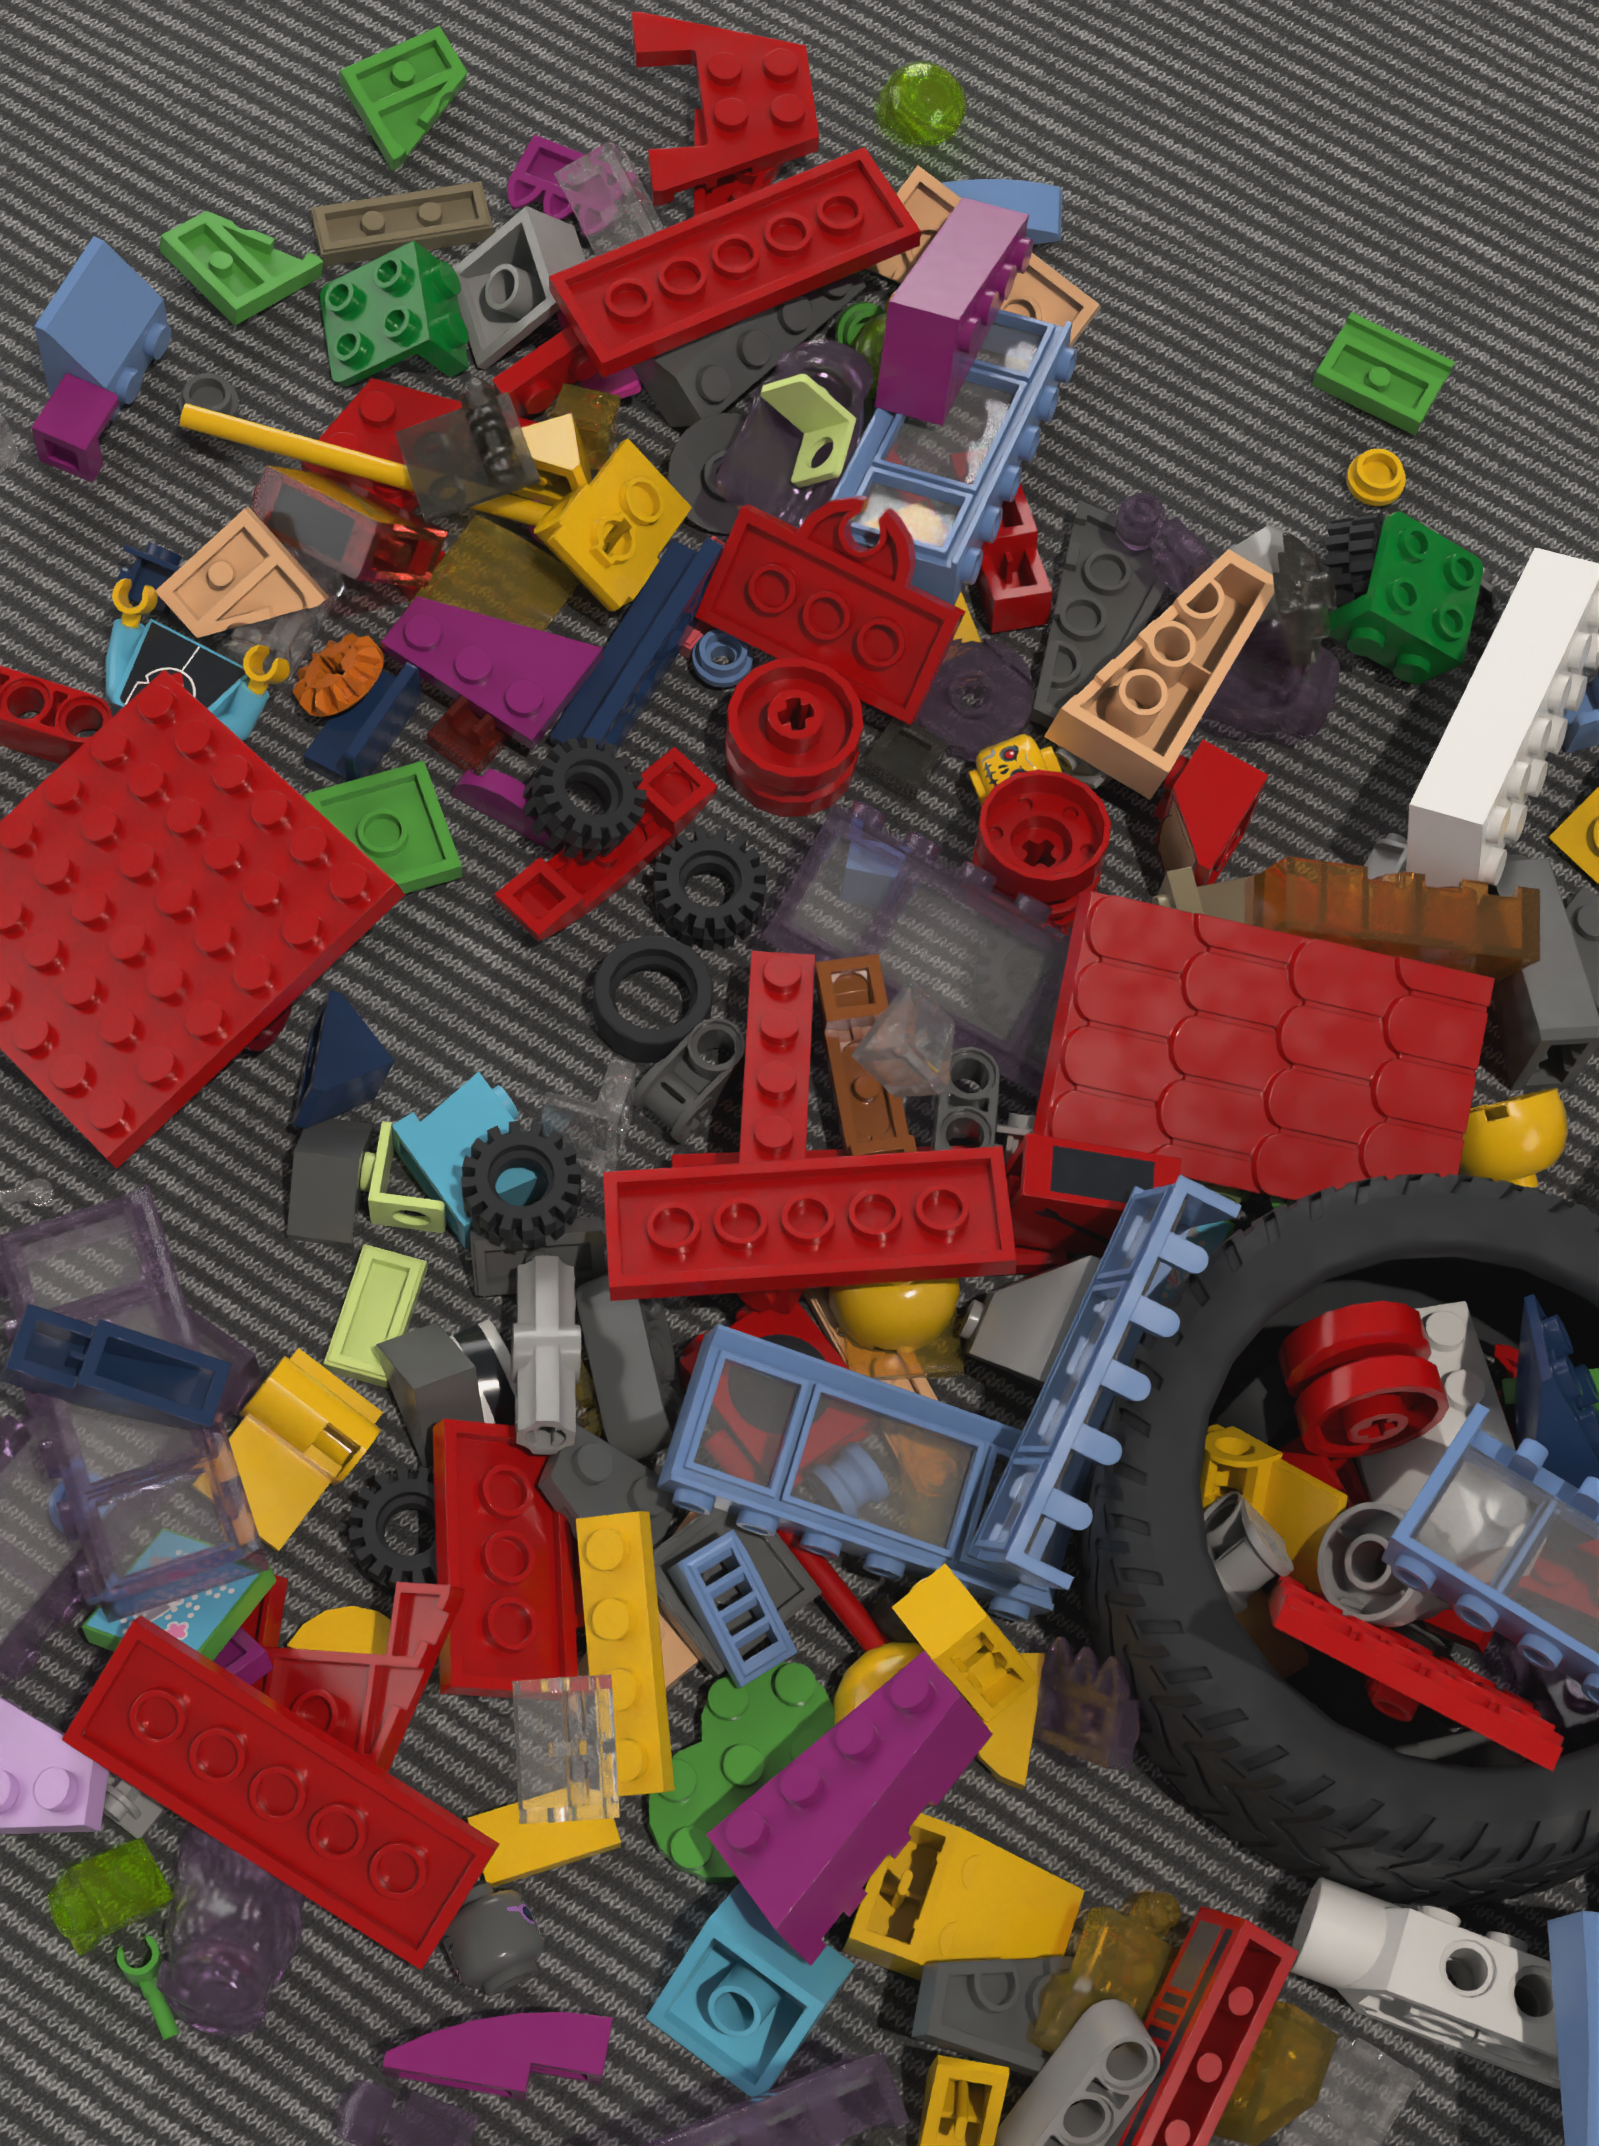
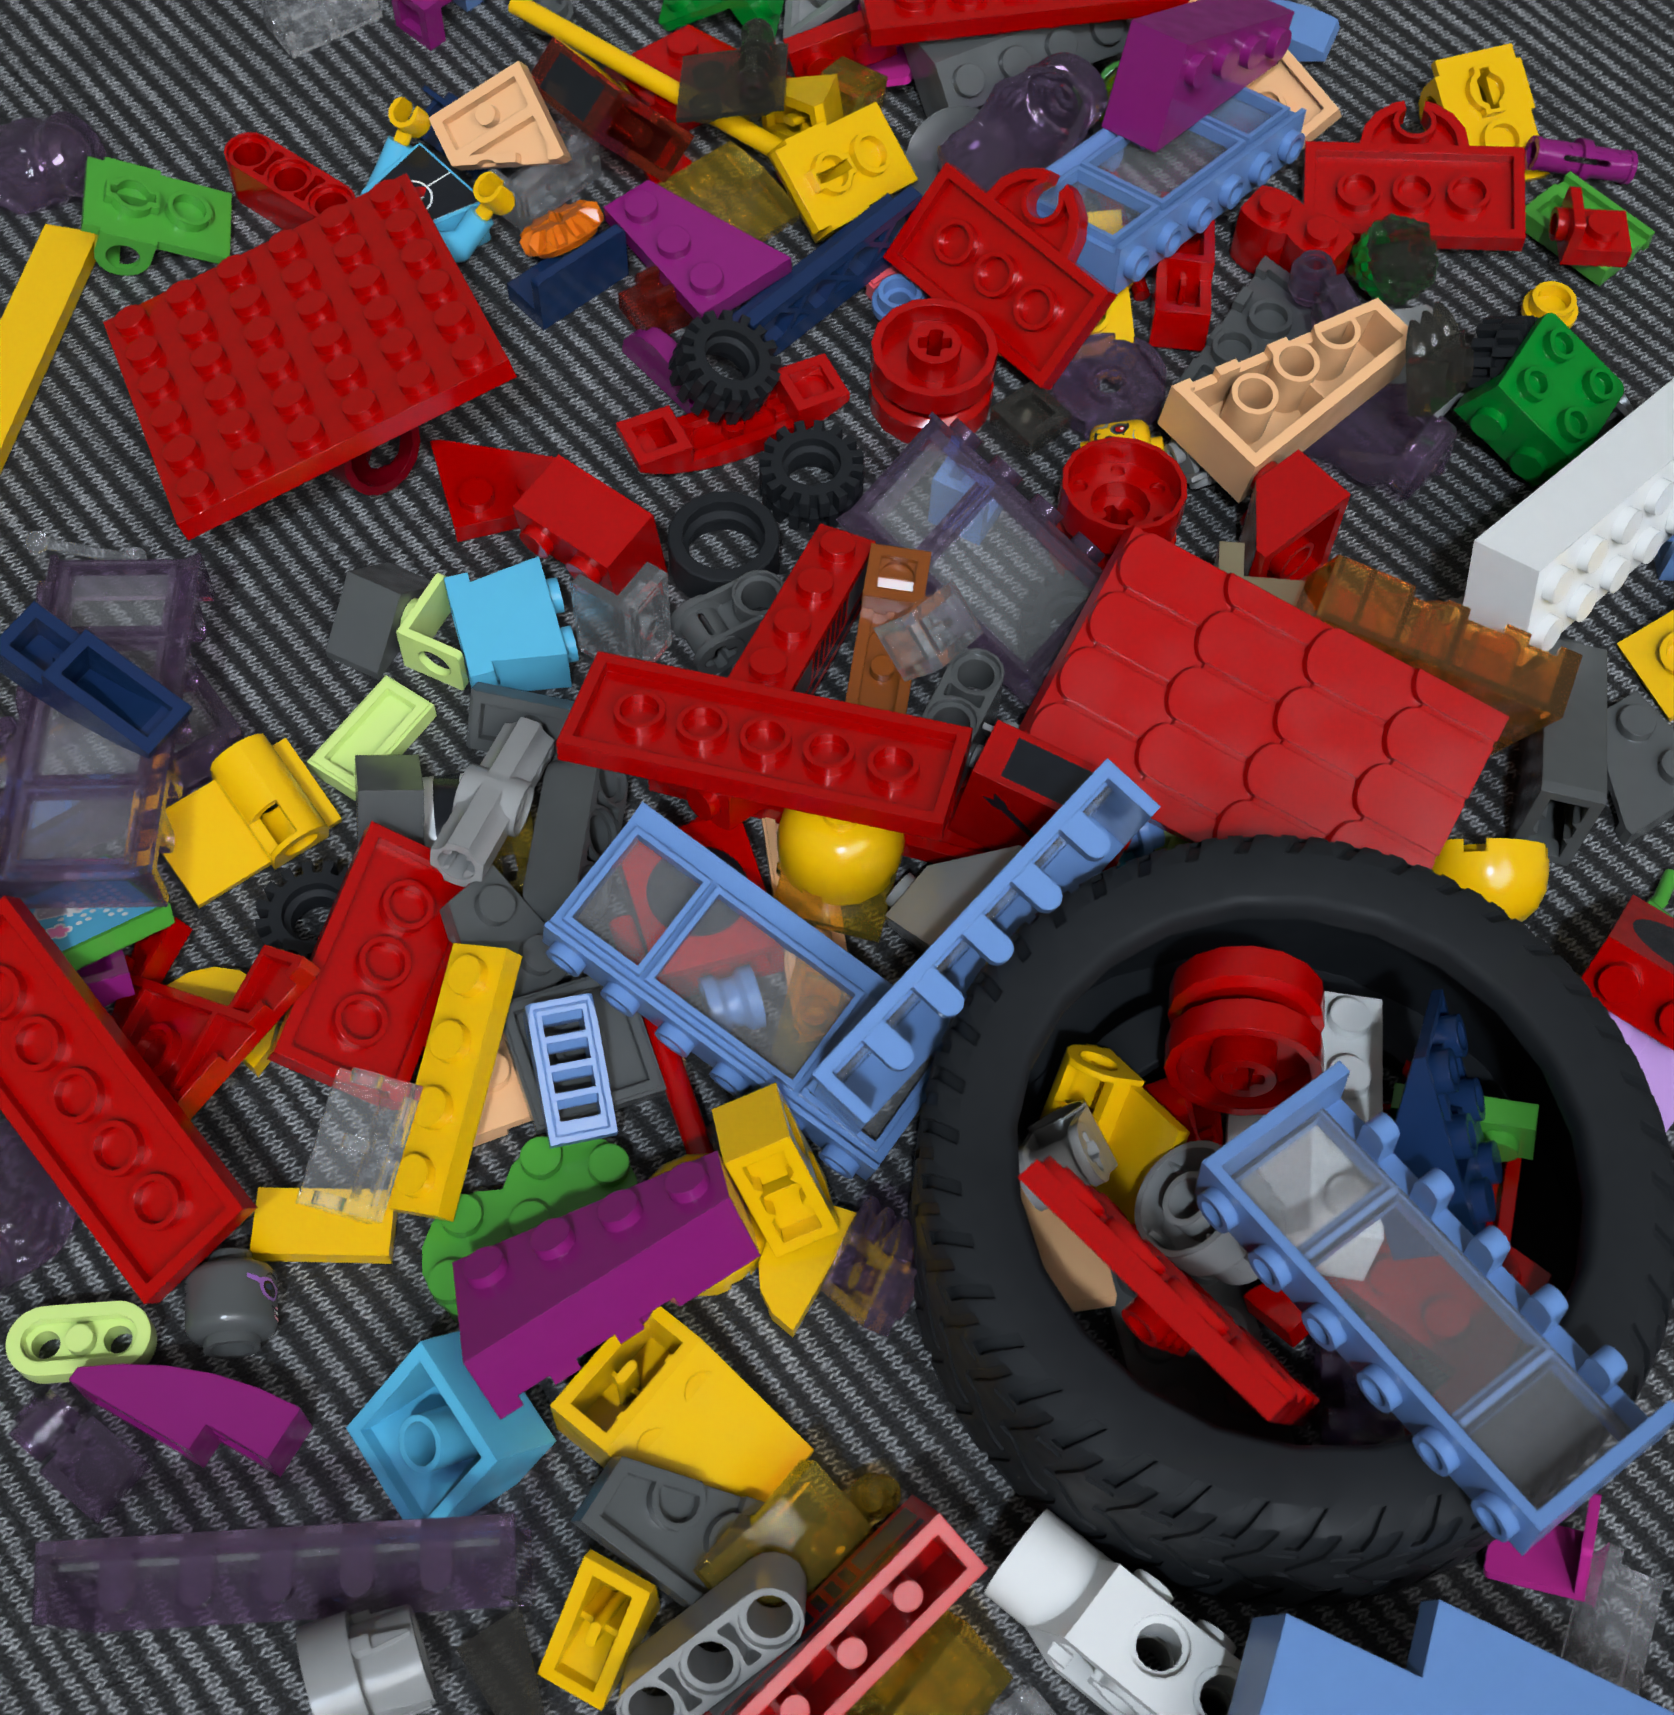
camera: 25 degrees right, 5 degrees down
(341, 1064) = (424, 525): dark blue slope -> none
(363, 2021) = (84, 1338): none -> yellowish green plate
(395, 823) = (554, 358): bright green plate -> none
(398, 991) = (484, 485): none -> red wing
(521, 1149) = (522, 623): black tyre -> none
(523, 1031) = (587, 526): none -> red slope
(820, 420) = (1041, 112): yellowish green bracket -> none
(1096, 472) = (1283, 229): none -> red brick
(1201, 377) = (1462, 190): none -> red plate
(1211, 471) = (1395, 259): none -> clear smoke piece
(1251, 269) = (1487, 96): none -> yellow piece
(1355, 293) = (1611, 163): none -> magenta pin
(1395, 387) = (1589, 235): none -> red bracket

